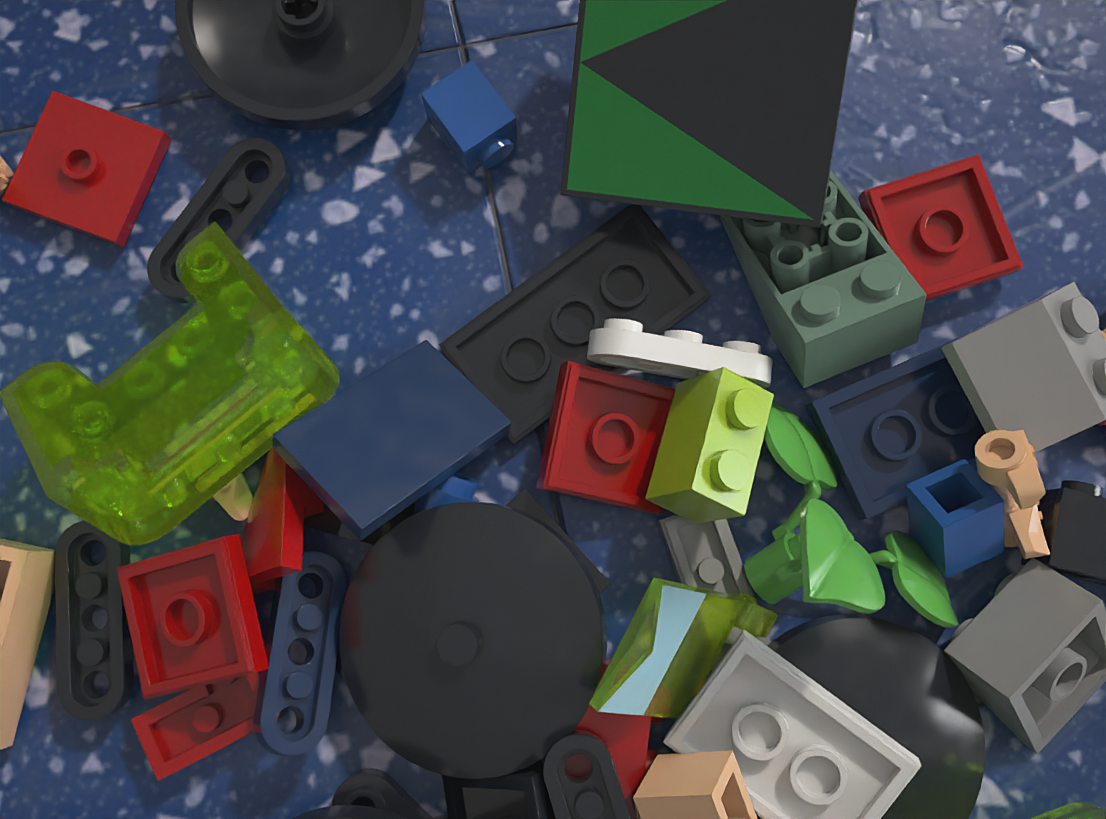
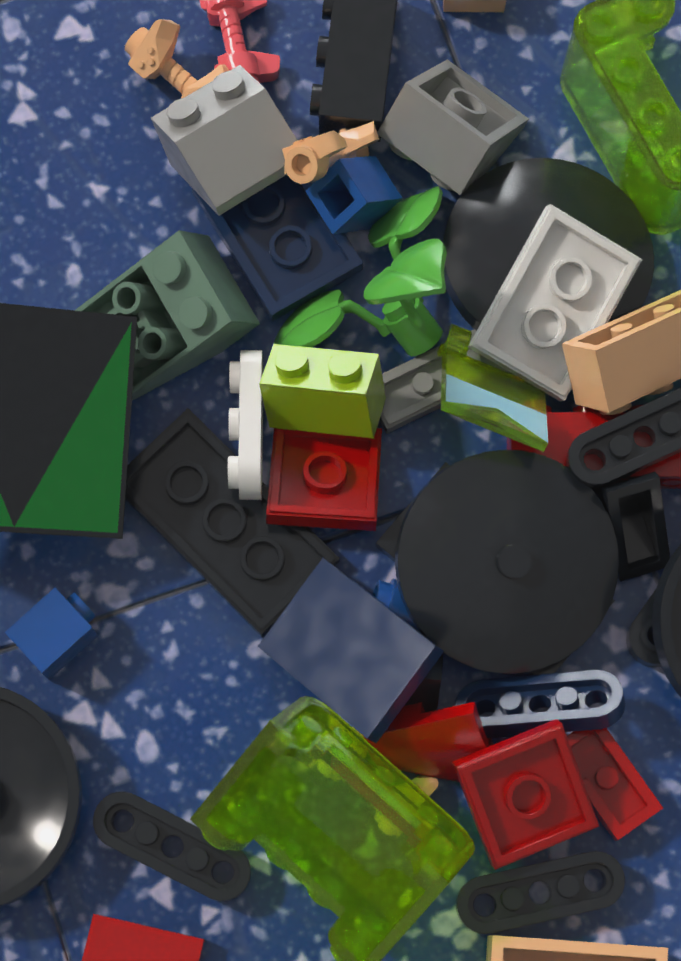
camera: 95 degrees left, 5 degrees down
(944, 227) = (106, 223): red plate -> none

